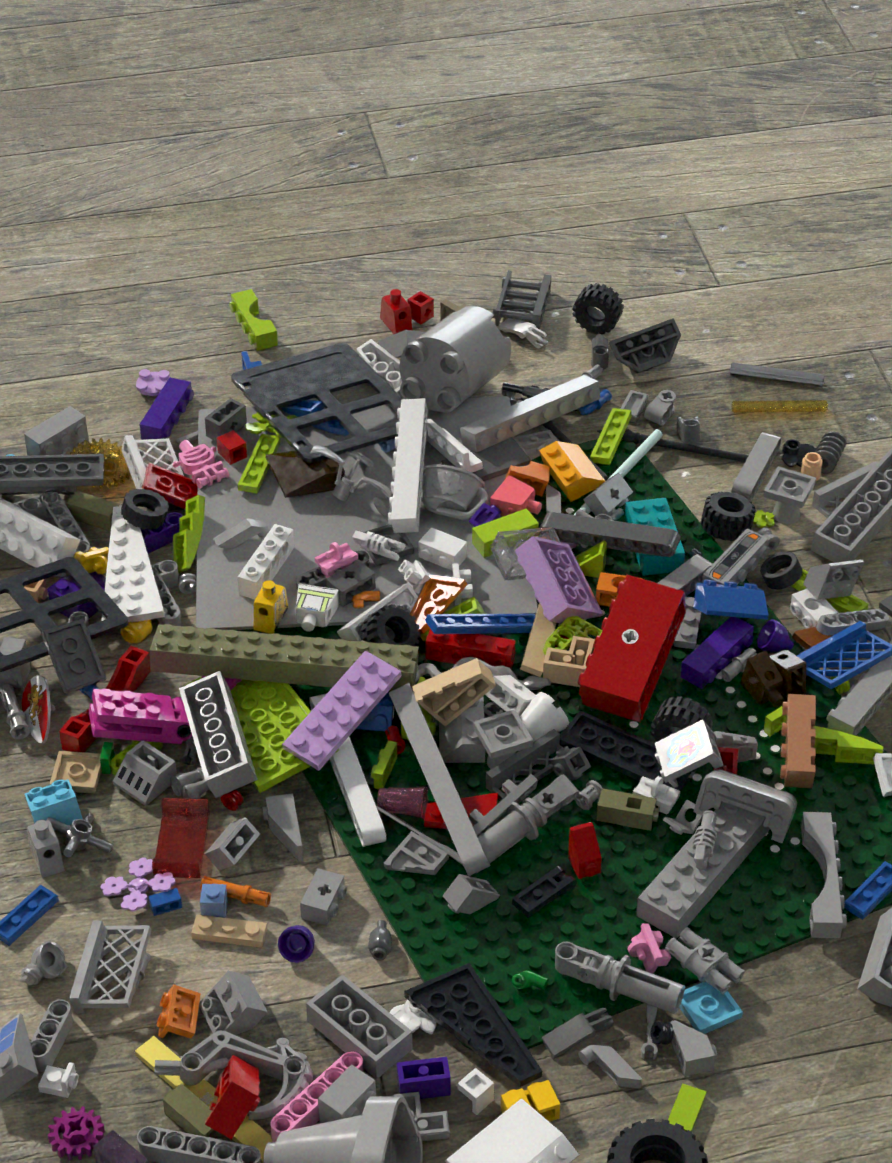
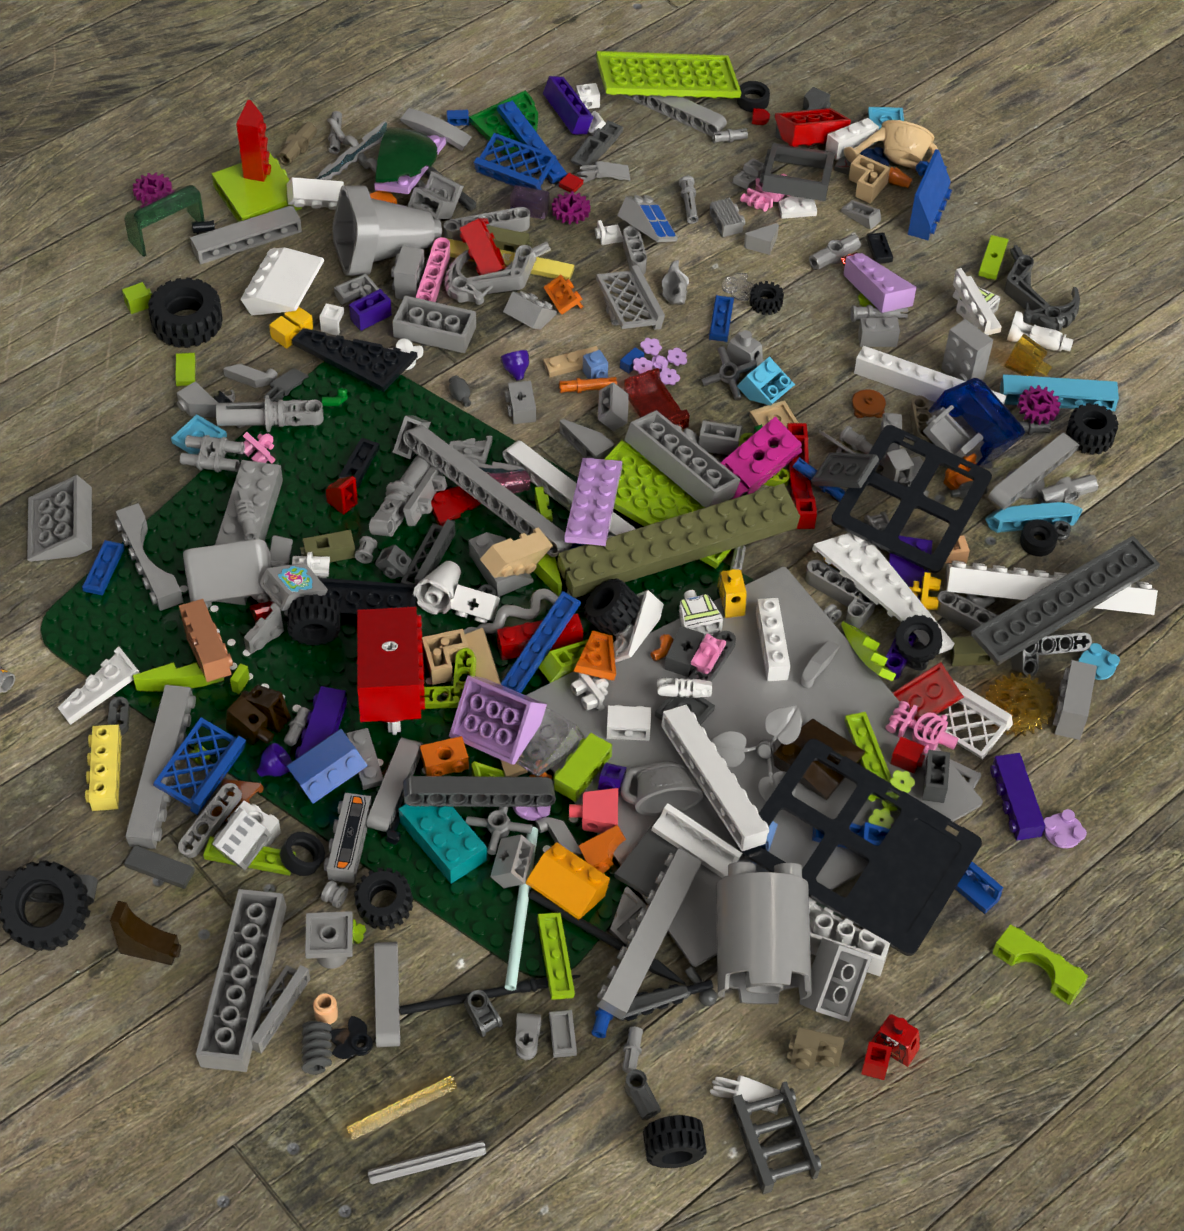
camera: 150 degrees right, 10 degrees up
(414, 574) = (627, 678): white hips -> none
(502, 736) = (454, 541): light grey plant -> none
(648, 346) = (595, 1117): dark grey wedge -> none

